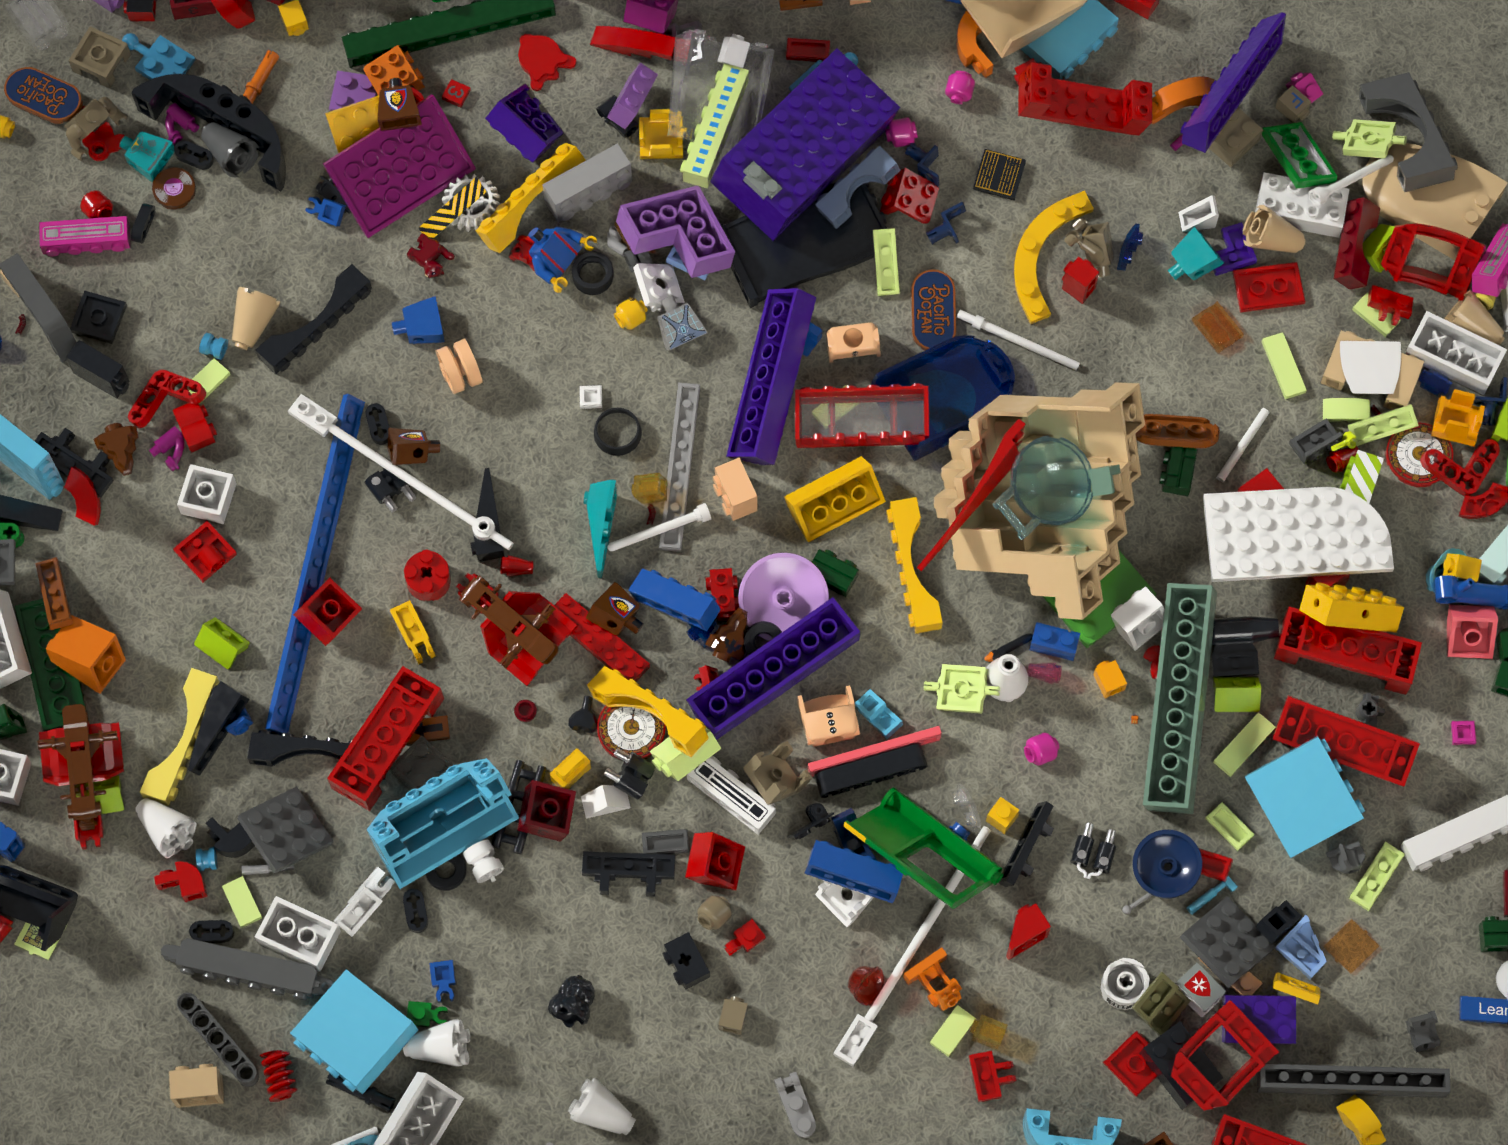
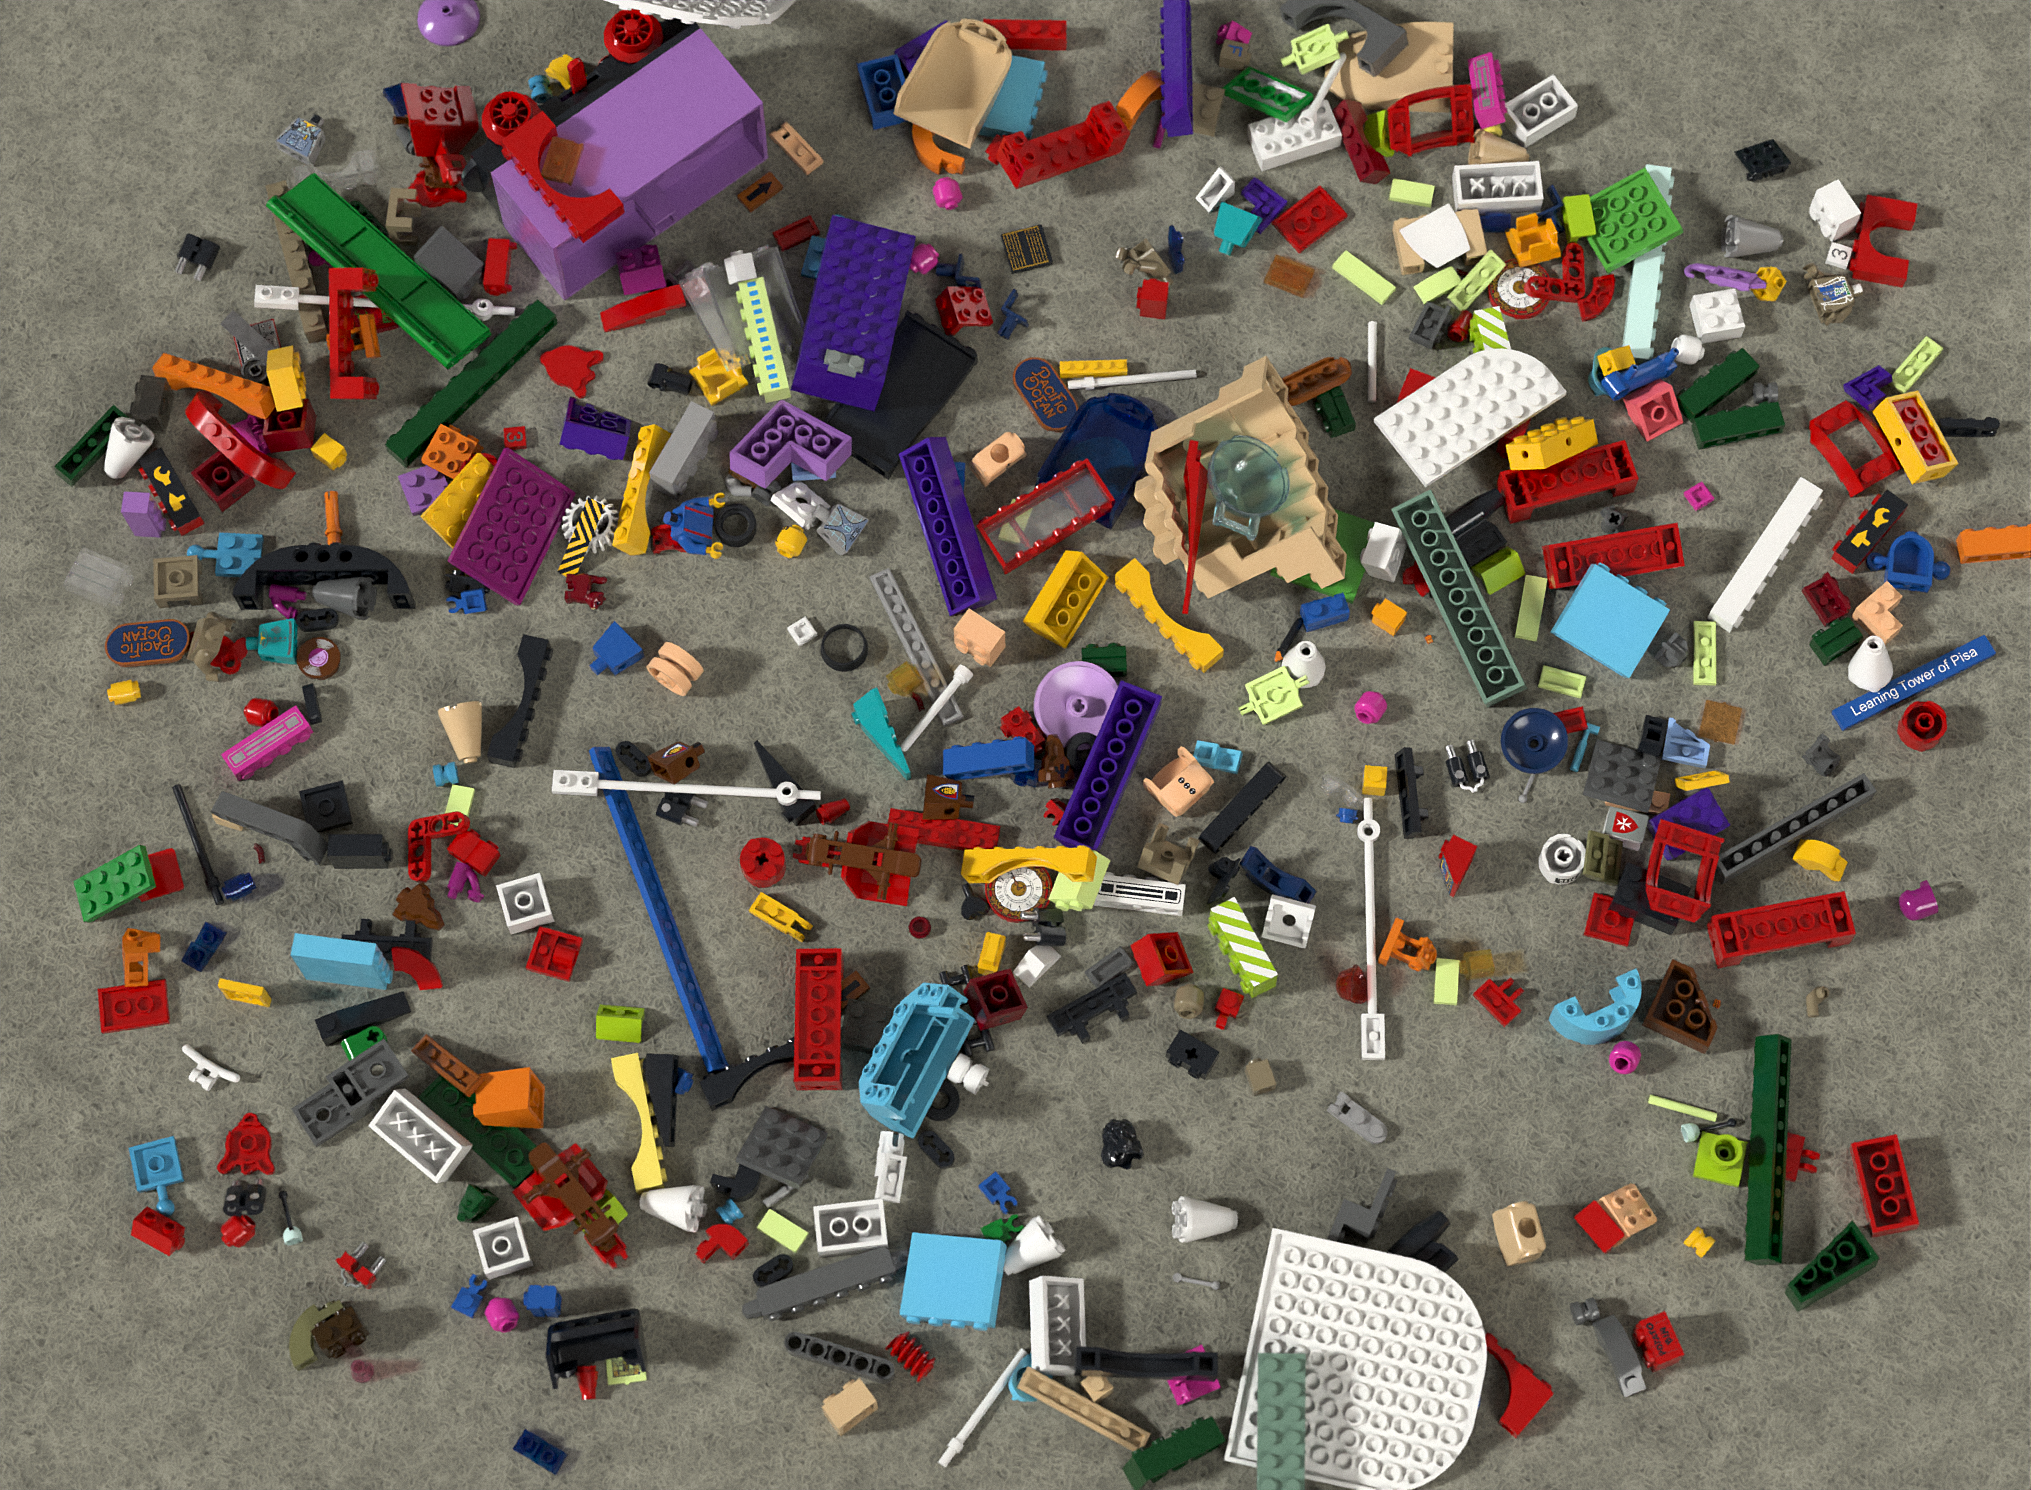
camera: 30 degrees left, 0 degrees up
(327, 611) = (698, 941): red brick -> none
(370, 1096) = (1002, 1325): black pin -> none
(397, 107) = (485, 474): reddish brown torso -> none
(632, 95) = (674, 354): medium lavender brick -> none
(789, 894) = (1242, 948): none -> lime brick
(854, 871) = (1289, 896): blue brick -> none
(876, 167) = (925, 299): sand blue arch -> none
(886, 261) = (981, 375): yellowish green tile -> none
(904, 828) = (1304, 839): green piece -> none
(922, 737) = (1264, 757): coral tile -> none
(989, 311) = (1093, 368): none -> yellow piece
(1030, 246) = (1092, 297): yellow plate -> none
(1045, 672) = (1333, 642): clear pink cone -> none
(1102, 479) = (1288, 452): sand green panel -> none
(1271, 232) = (1283, 171): tan cone -> none
(1347, 440) = (1456, 309): neon yellow hand -> none
(1390, 302) = (1417, 176): red hinge -> none

